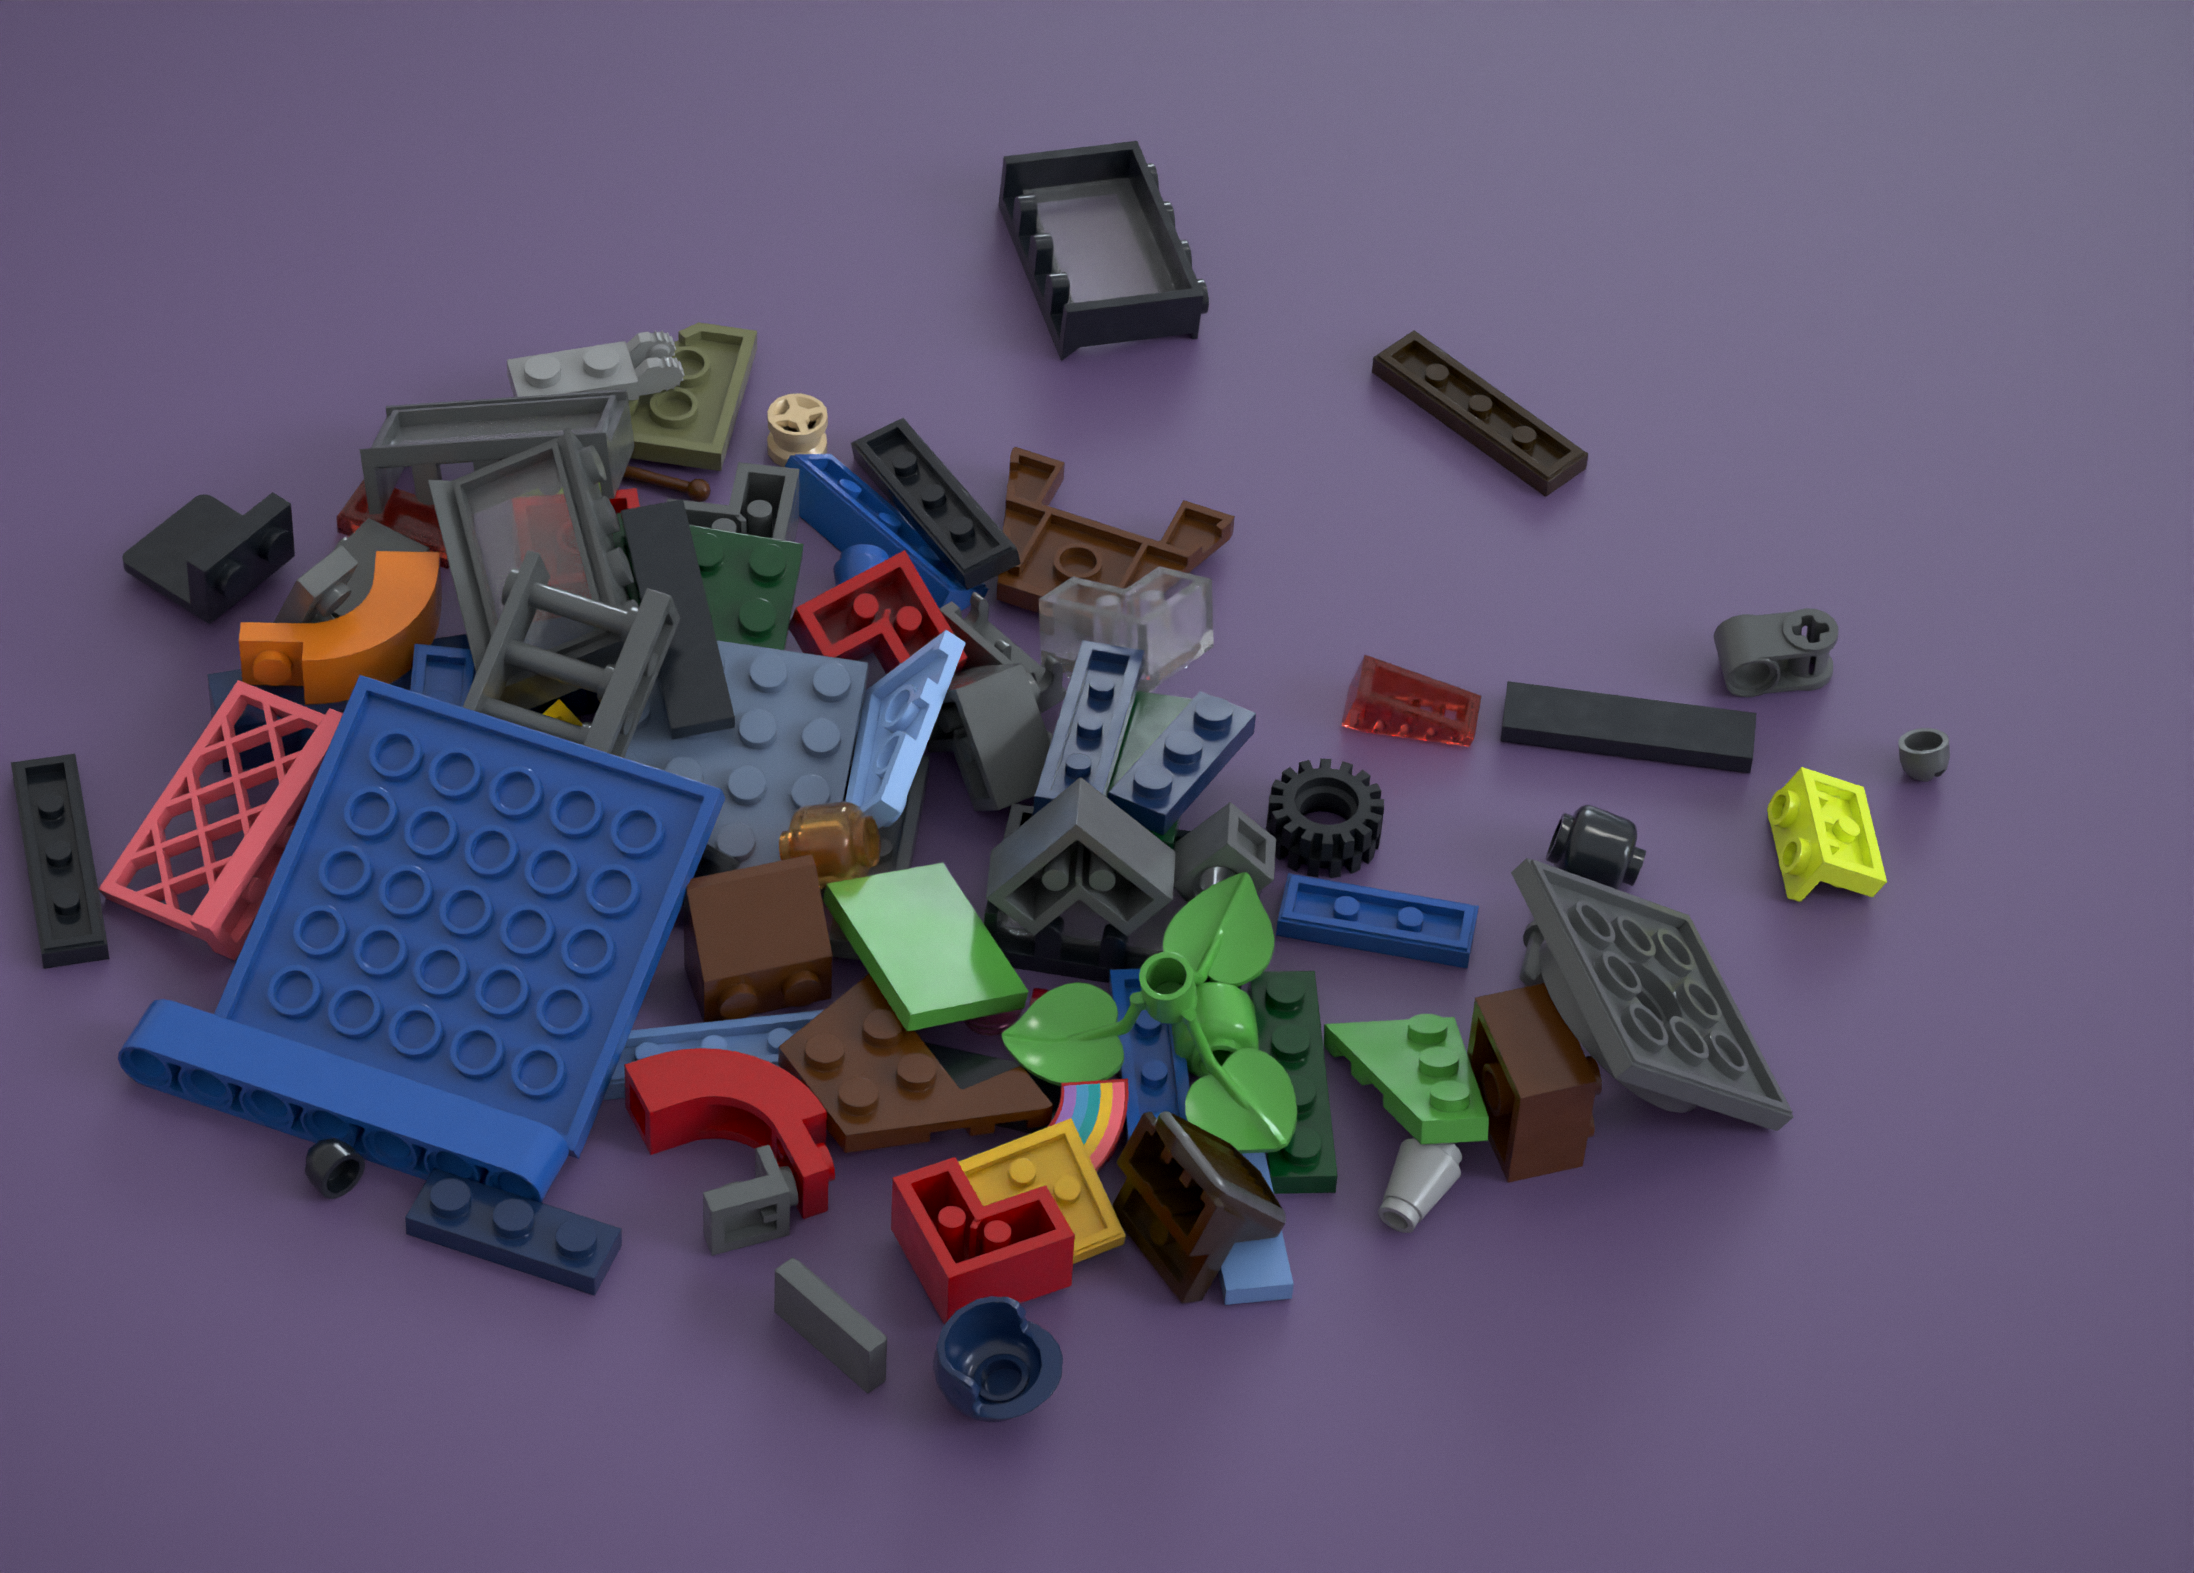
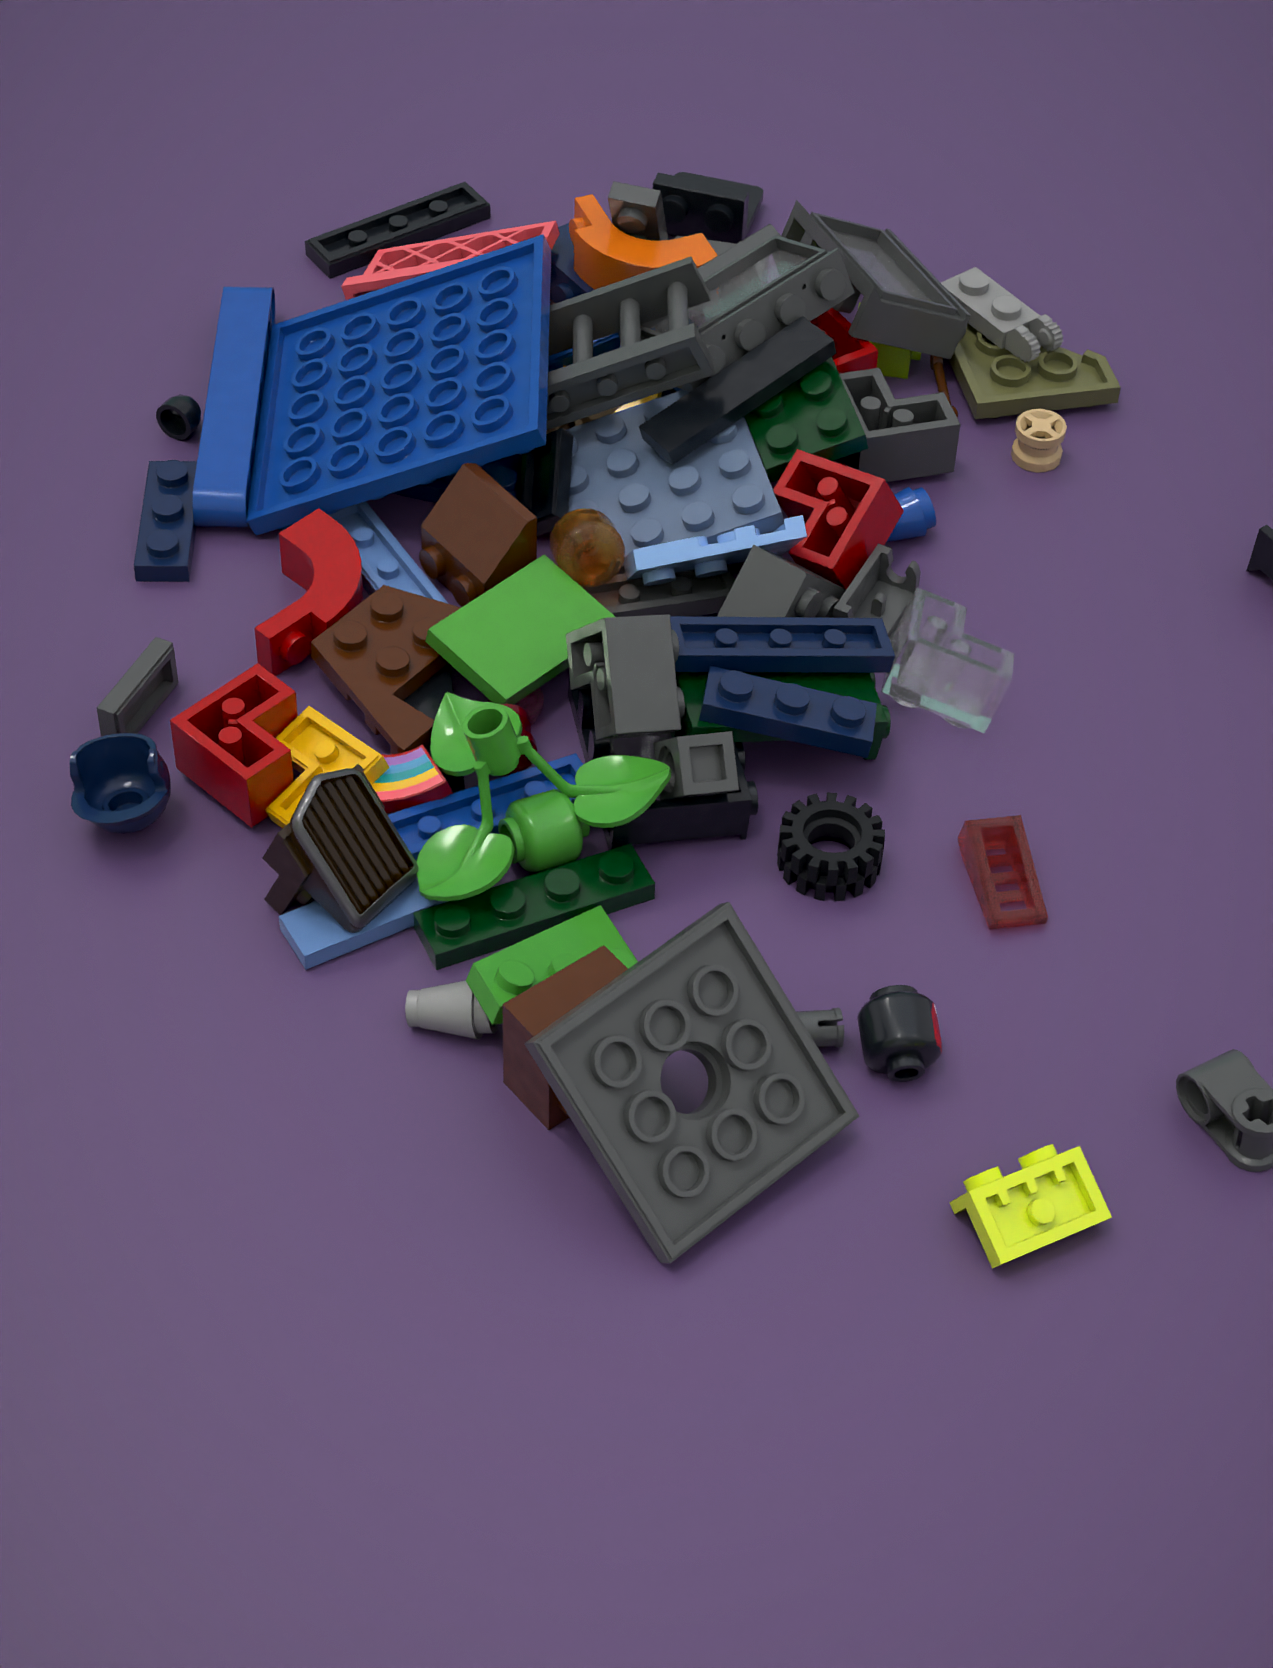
camera: 70 degrees right, 0 degrees up
(751, 1209) = (230, 621): dark grey bracket -> none
(854, 514) = (973, 518): blue slope -> none
(935, 503) = (1013, 529): black tile -> none
(1065, 545) = (1025, 620): reddish brown wing -> none
(1377, 920) = (738, 876): blue tile -> none
(1628, 727) = (1081, 1032): black tile -> none
(1924, 753) = (1189, 1256): dark grey hinge -> none

